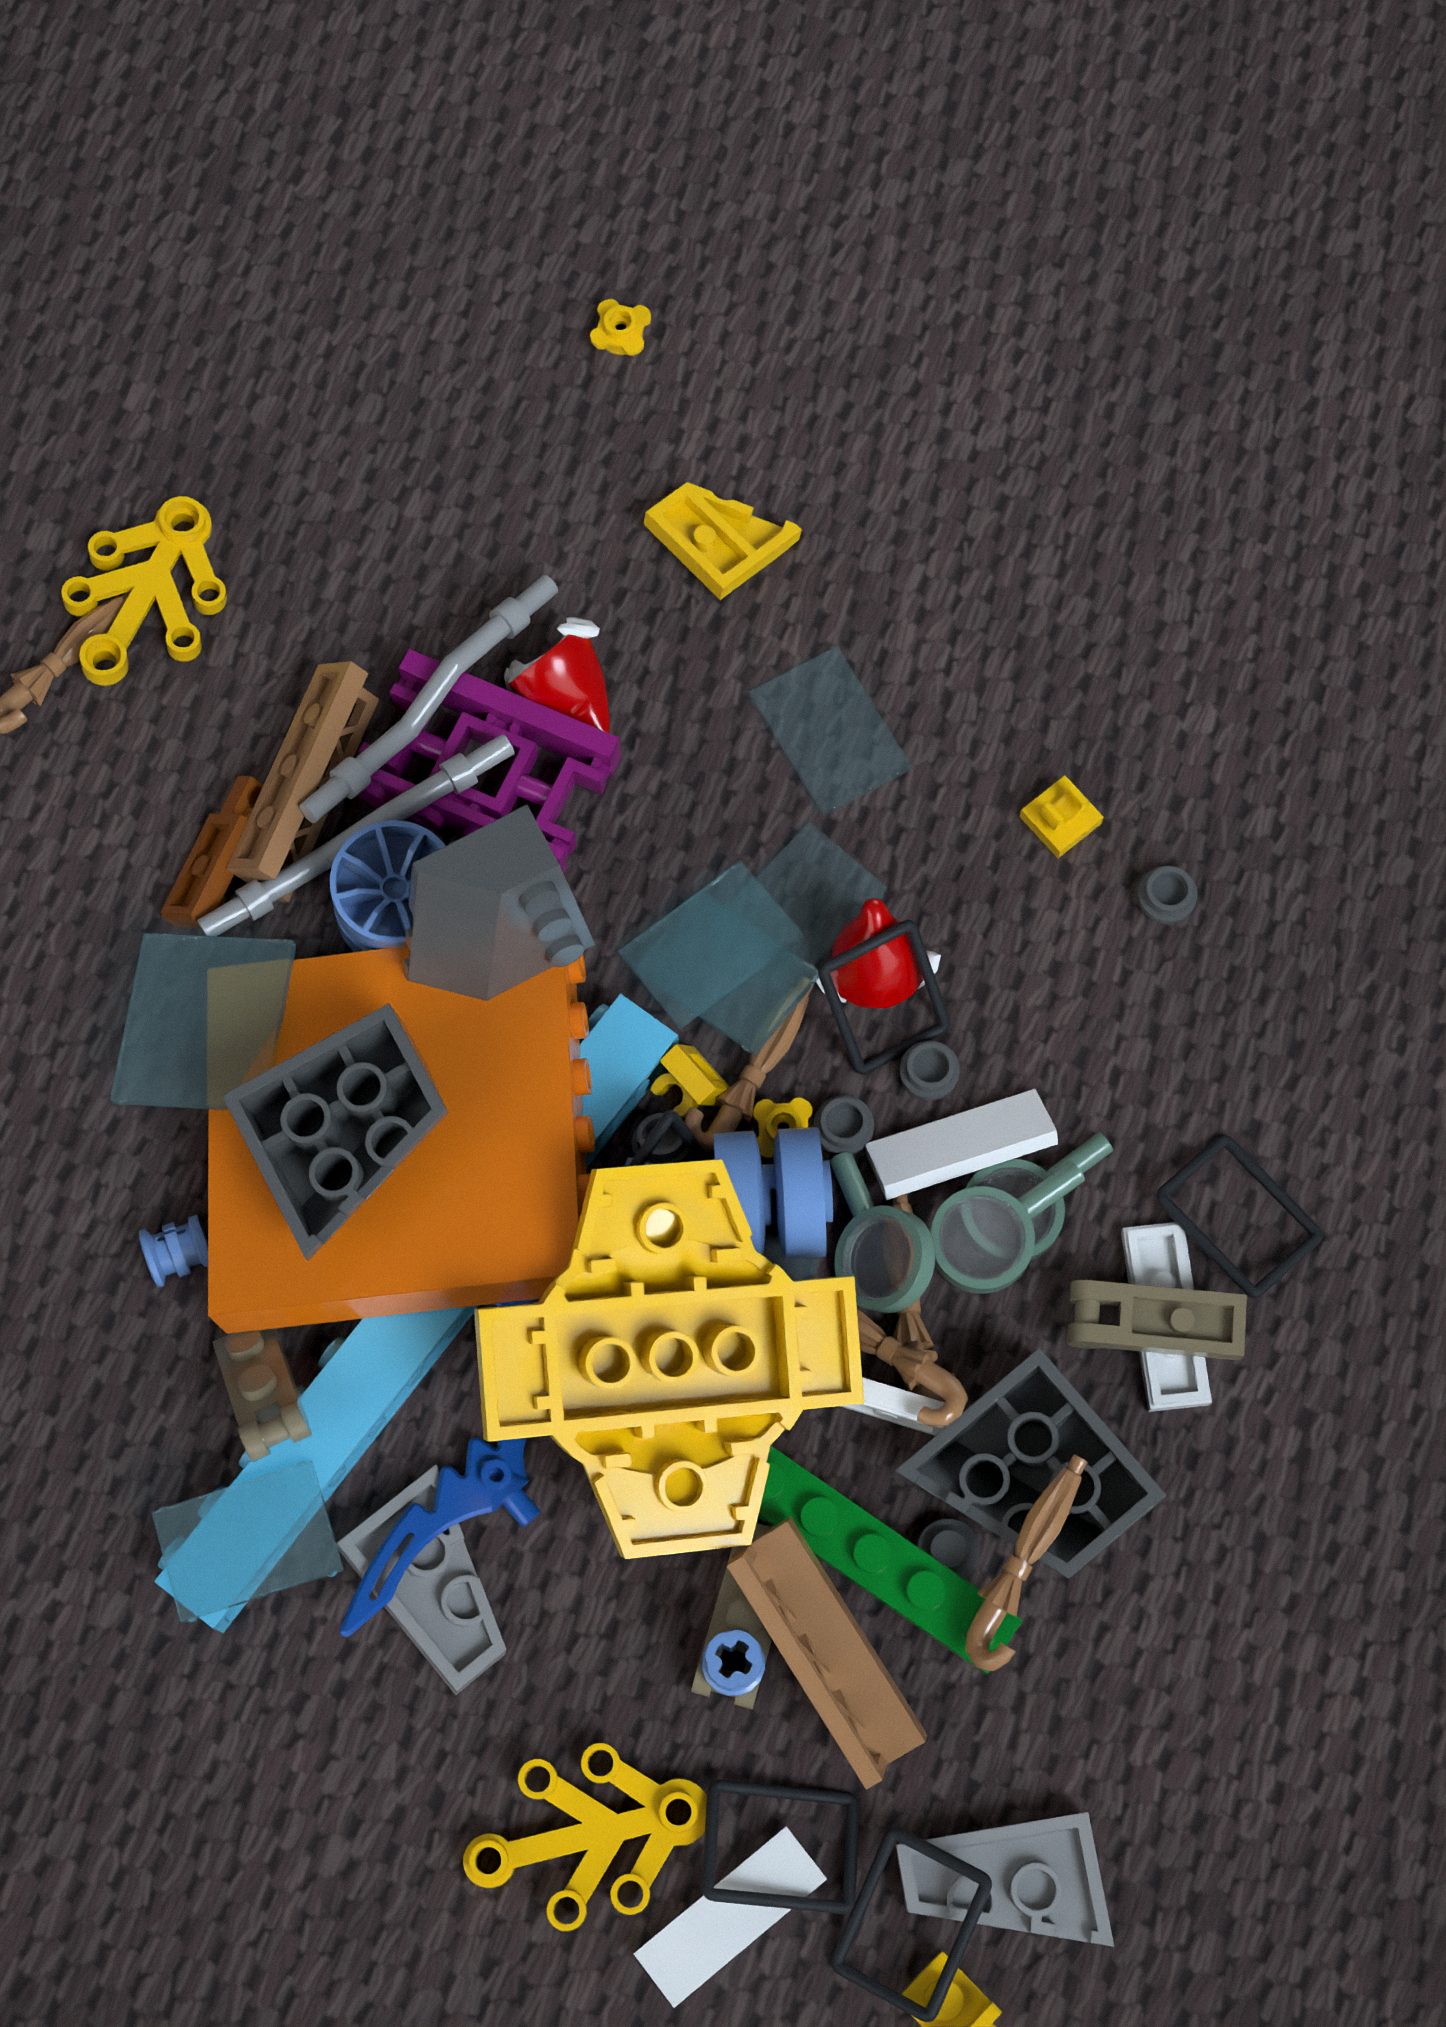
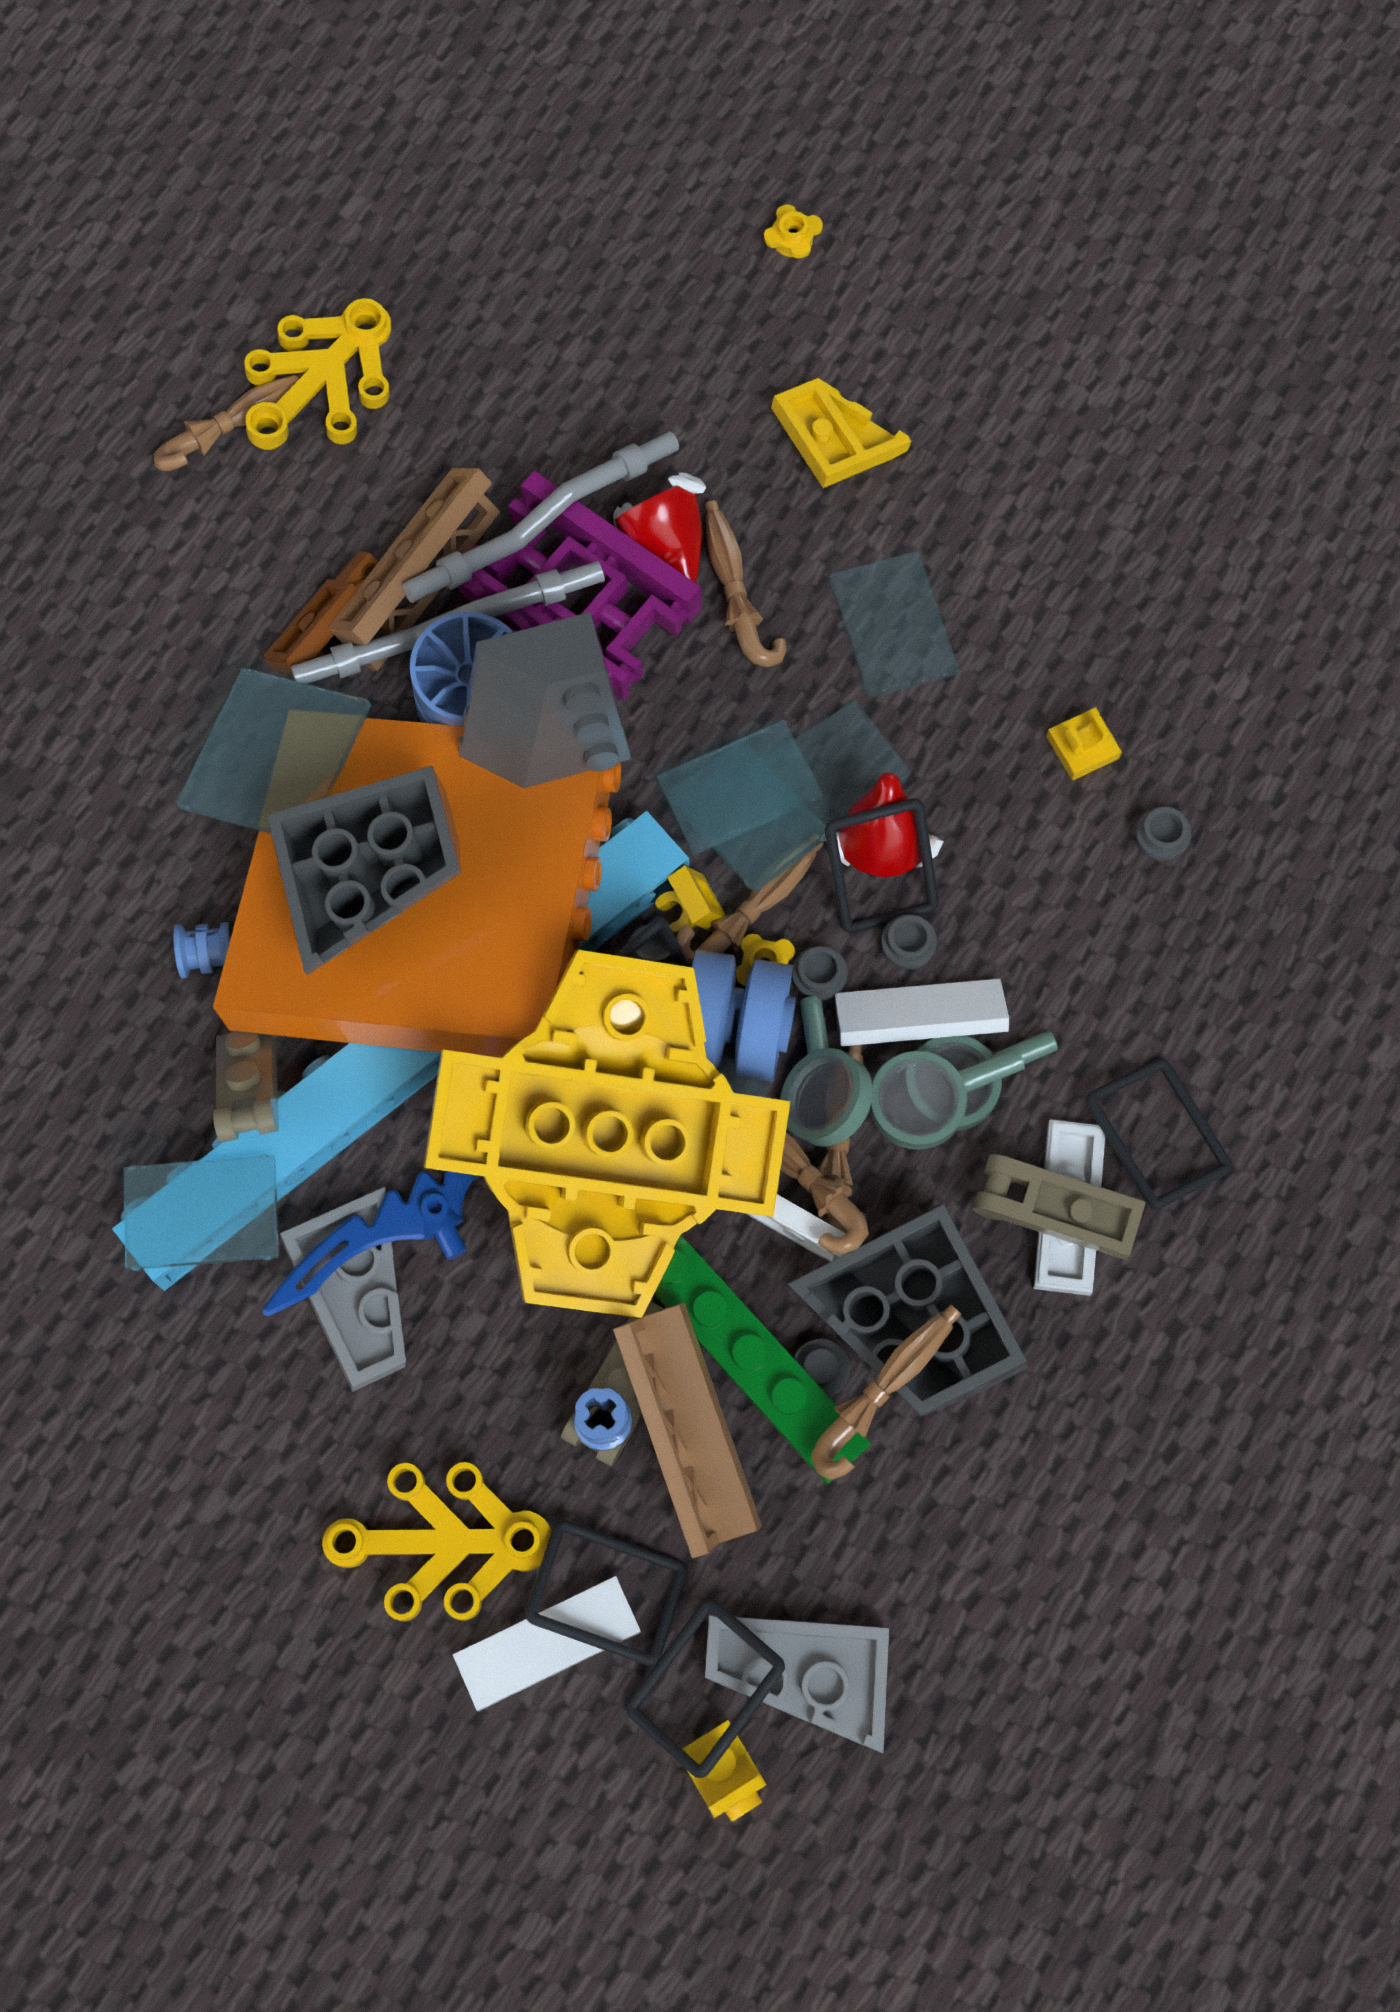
camera: 15 degrees right, 0 degrees up
(666, 755) = (741, 614): none -> medium nougat piece

